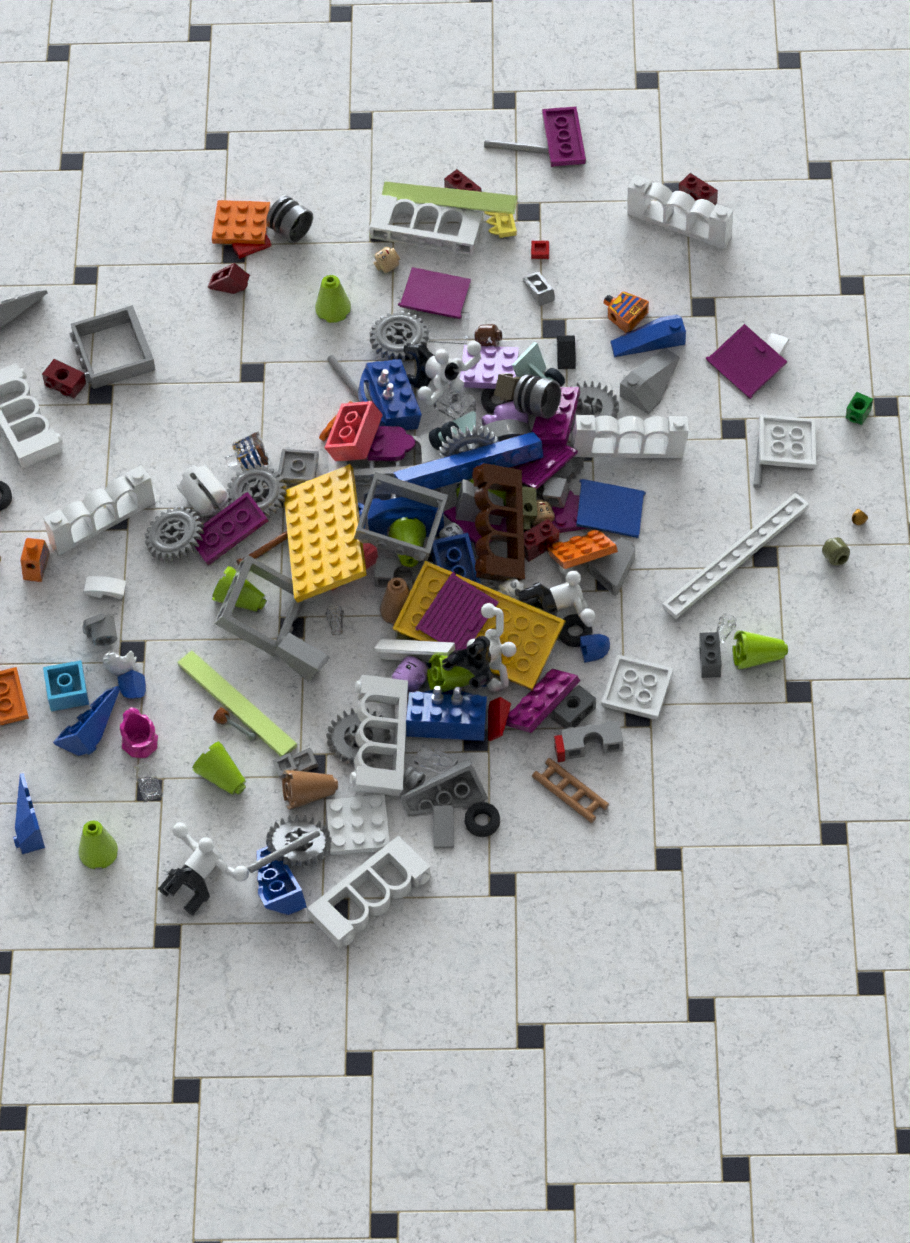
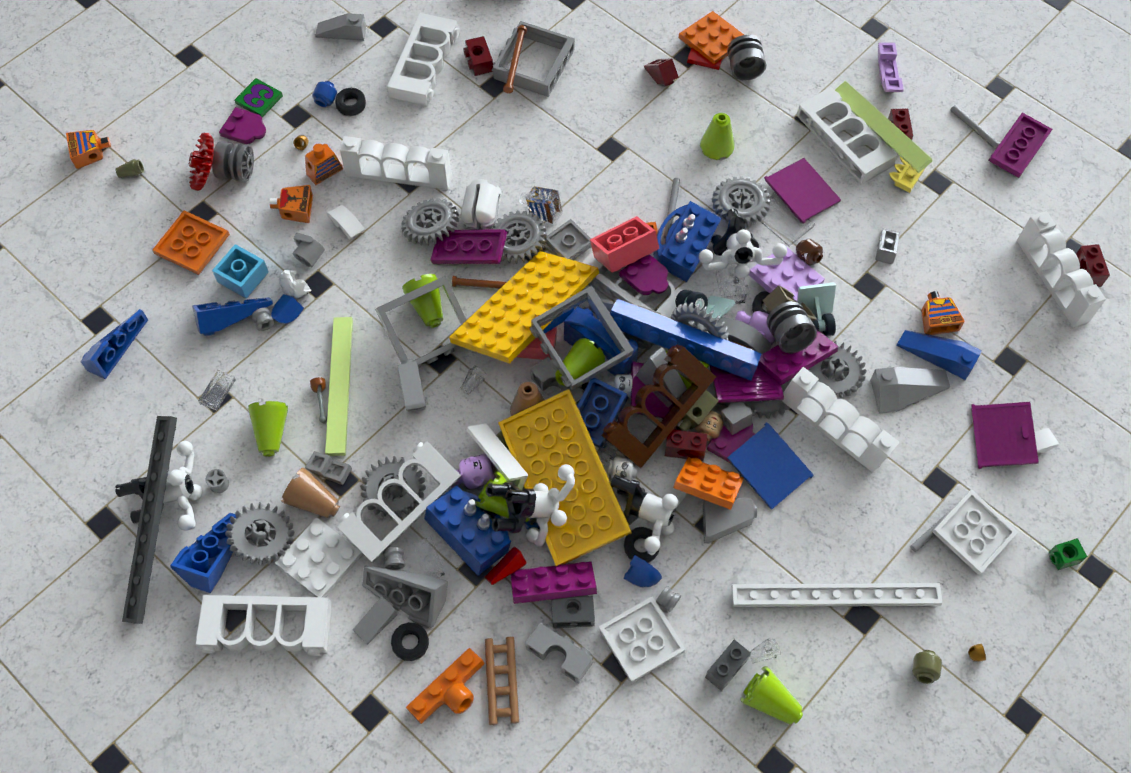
camera: 40 degrees right, 5 degrees up
(46, 606) = (294, 203): none -> orange torso
(83, 330) = (508, 87): none -> dark orange bar
(96, 846) = (129, 408): lime cone -> none
(122, 704) = (263, 319): none -> light grey wheel
(138, 734) = (247, 348): dark pink piece -> none
(215, 889) = (149, 520): none -> dark grey plate
(223, 832) = (214, 477): none -> light grey wheel
(283, 851) = (231, 532): light grey bar -> none
(386, 259) = (790, 138): tan head -> none
(405, 147) = (888, 68): none -> lavender slope
(455, 613) = (549, 448): magenta piece -> none
(539, 249) = (917, 217): red tile -> none
(541, 823) = (448, 688): none -> orange plate
(559, 748) = (525, 636): red tile -> none
(566, 352) = (859, 311): black slope -> none
(629, 647) = (668, 598): none -> light grey wheel

